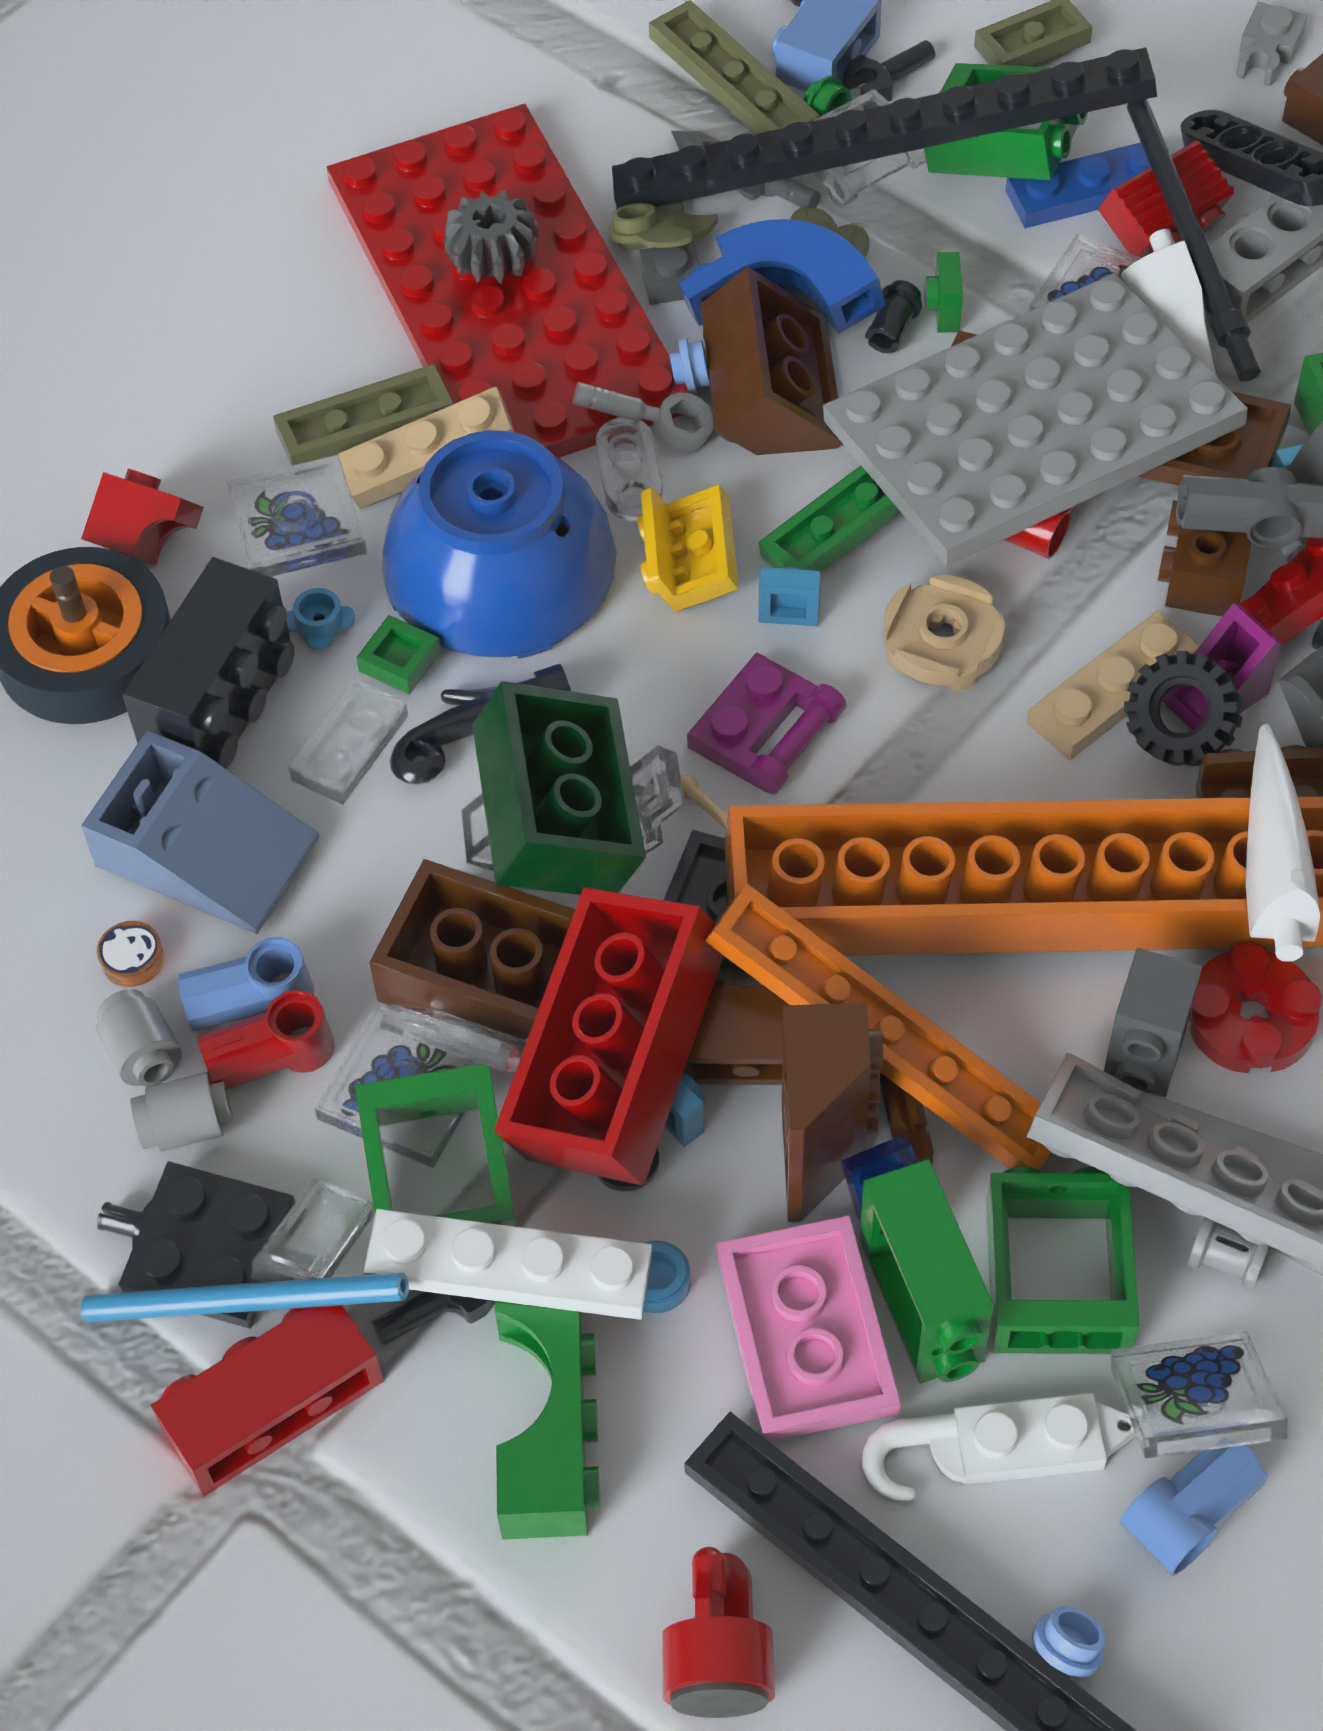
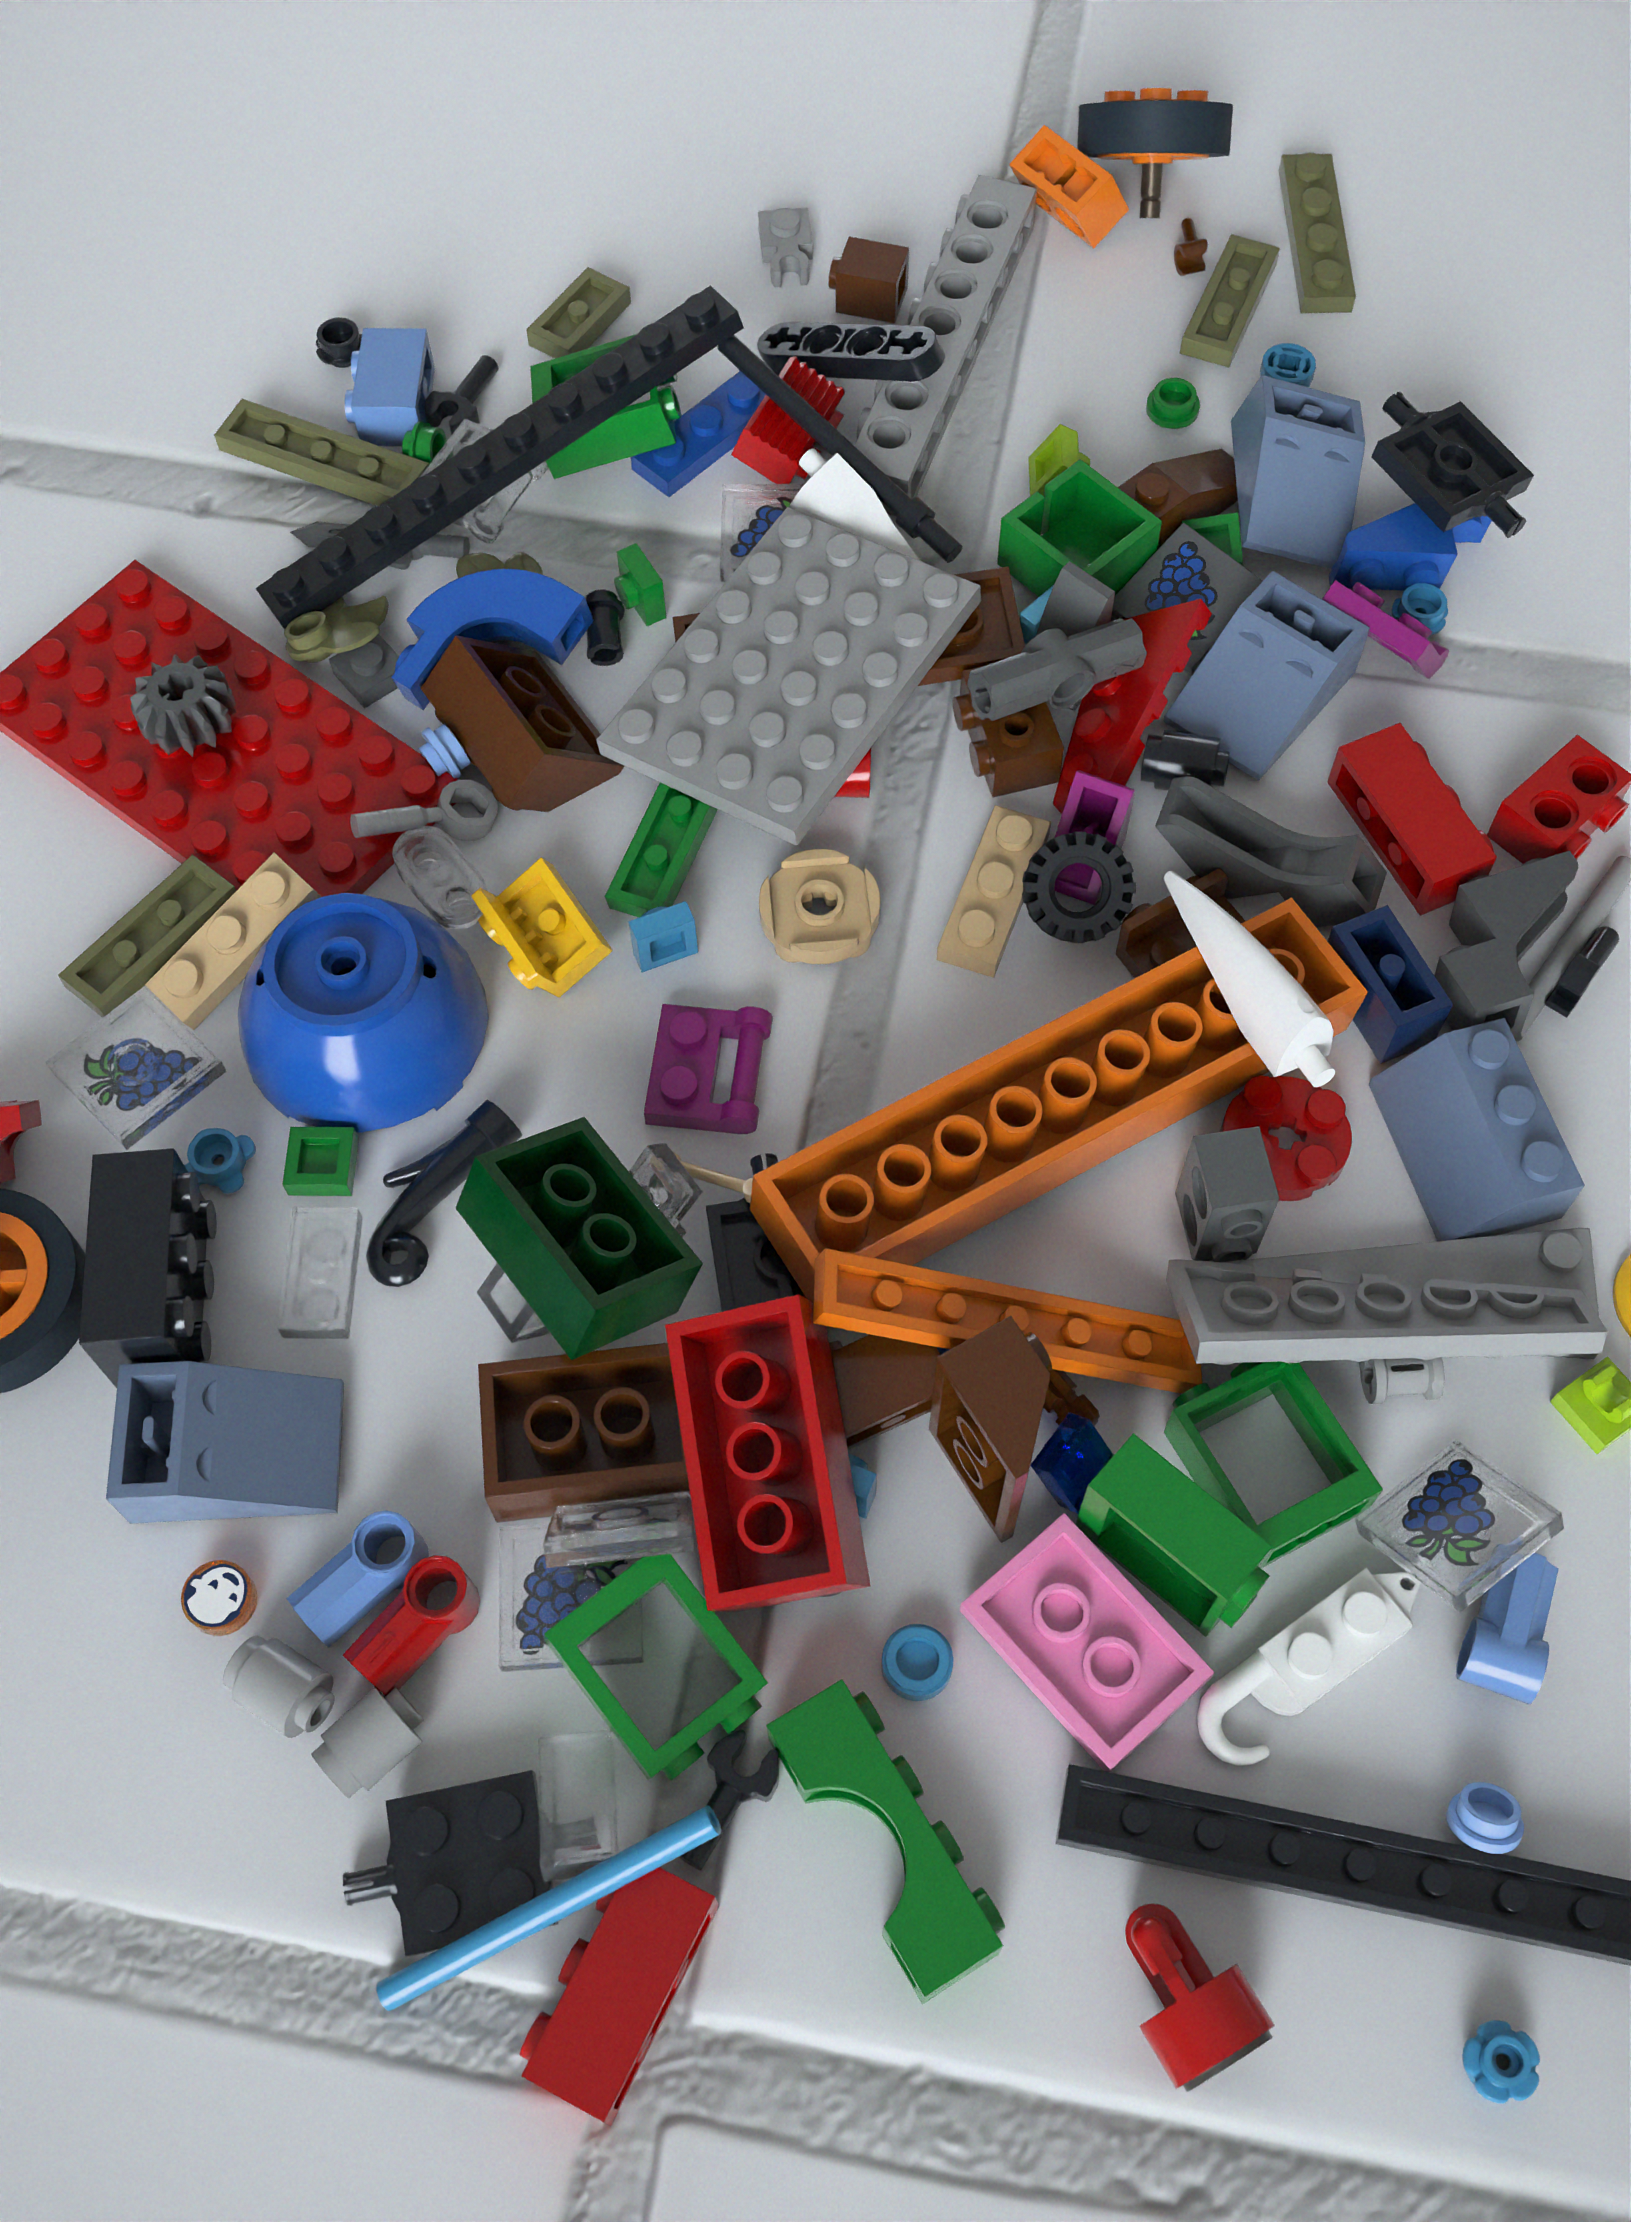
camera: 30 degrees left, 5 degrees up
(511, 1263) = (793, 1736): white plate -> none

